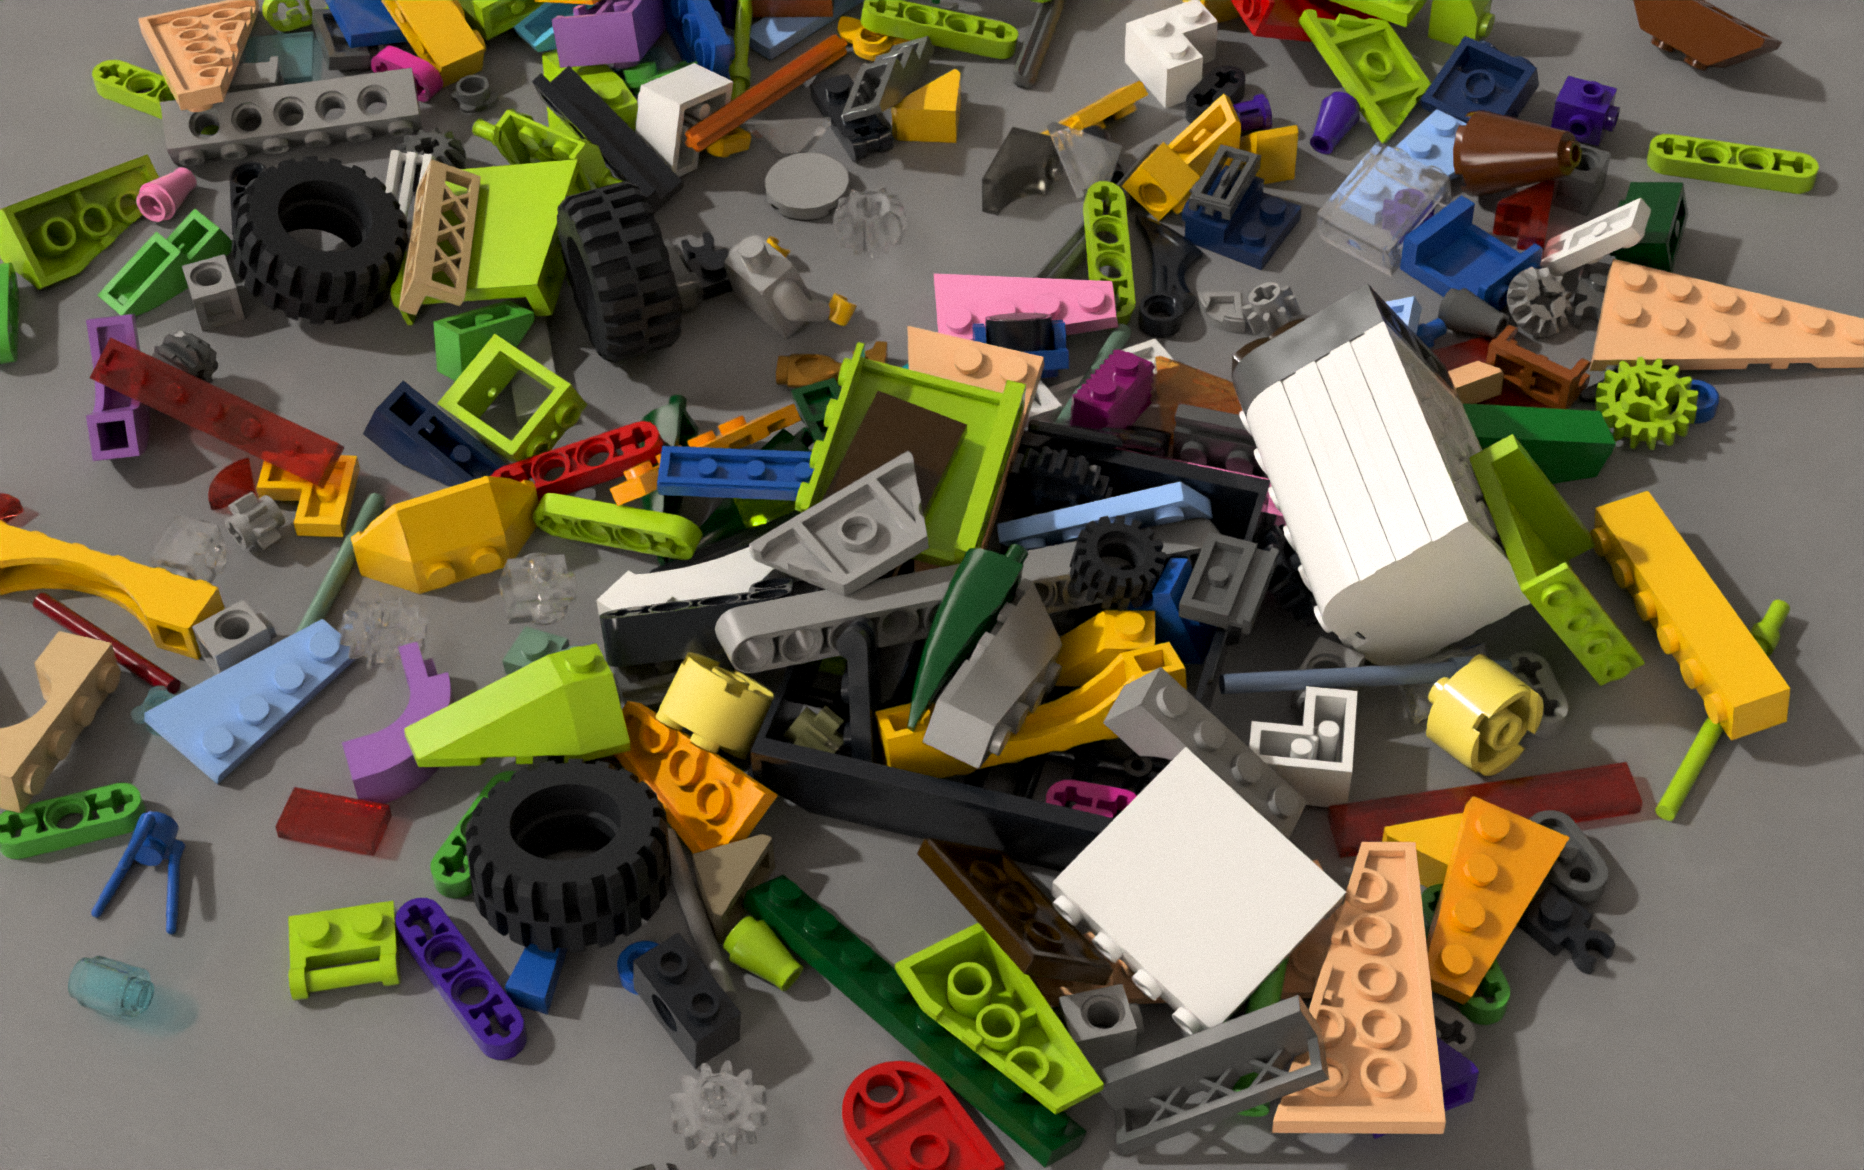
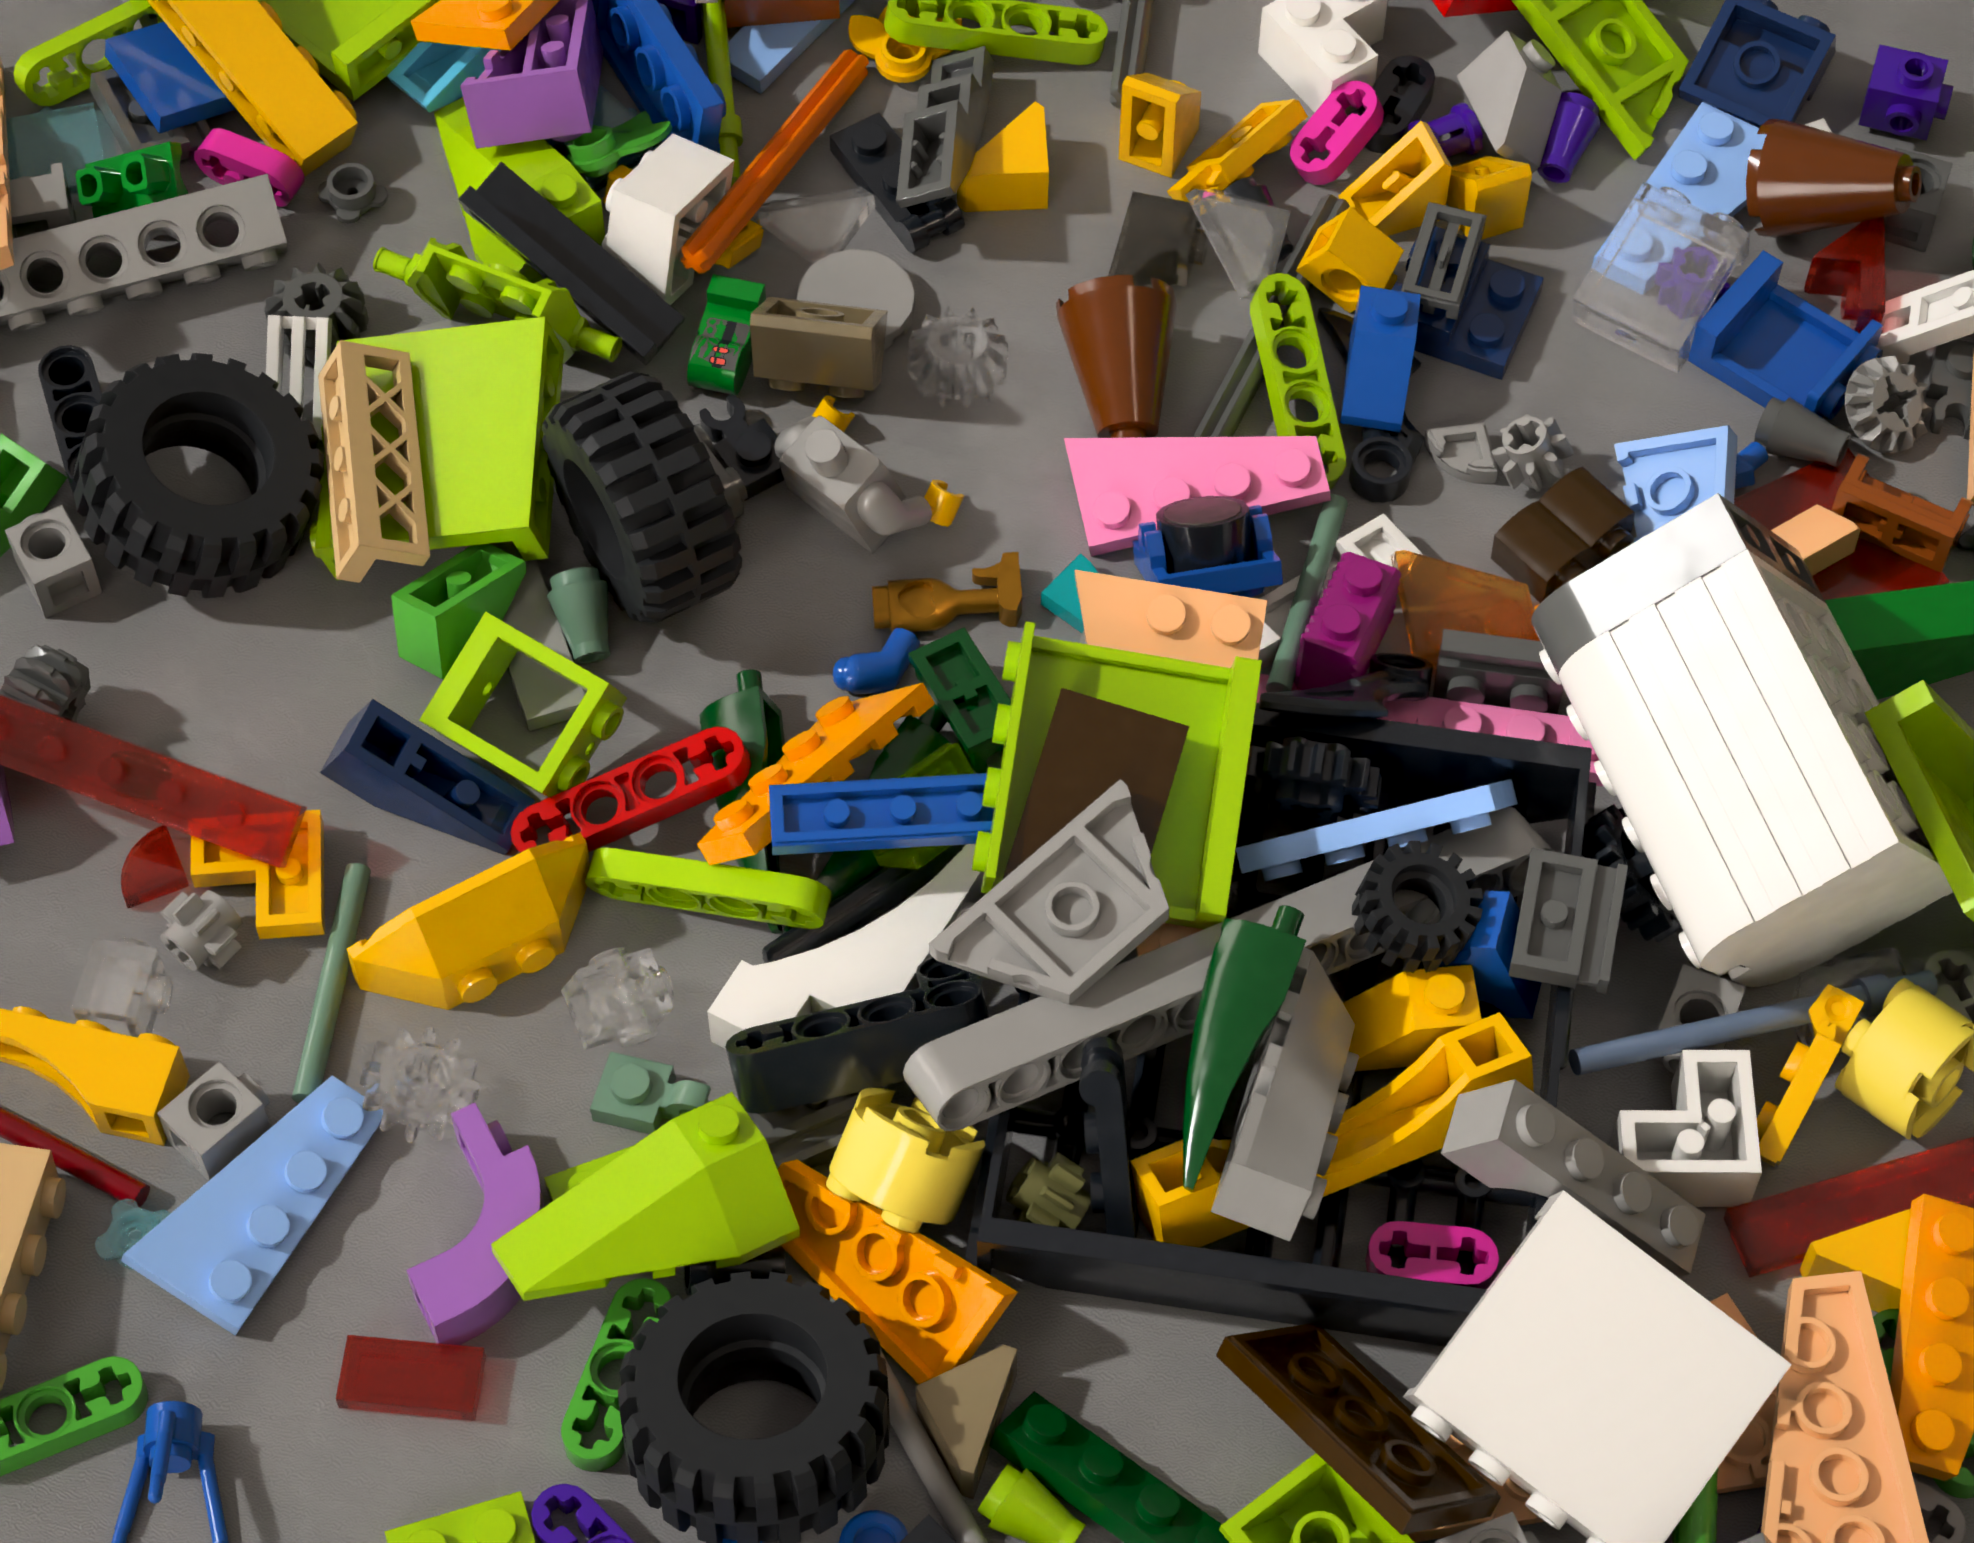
camera: 10 degrees left, 10 degrees up
(324, 65) = (131, 179): none -> green hips
(570, 349) = (582, 611): none -> sand green cone
(711, 195) = (723, 343): none -> green leg
(762, 404) = (876, 670): none -> blue arm
(770, 202) = (818, 345): none -> dark tan slope
(984, 217) = (1120, 350): none -> reddish brown cone
(1039, 89) = (1157, 122): none -> yellow slope
(1167, 106) = (1334, 131): none -> dark pink beam
(1169, 239) = (1380, 358): none -> blue slope
(1298, 90) = (1514, 96): none -> light grey slope
(1400, 717) = (1806, 1070): none -> yellow hinge

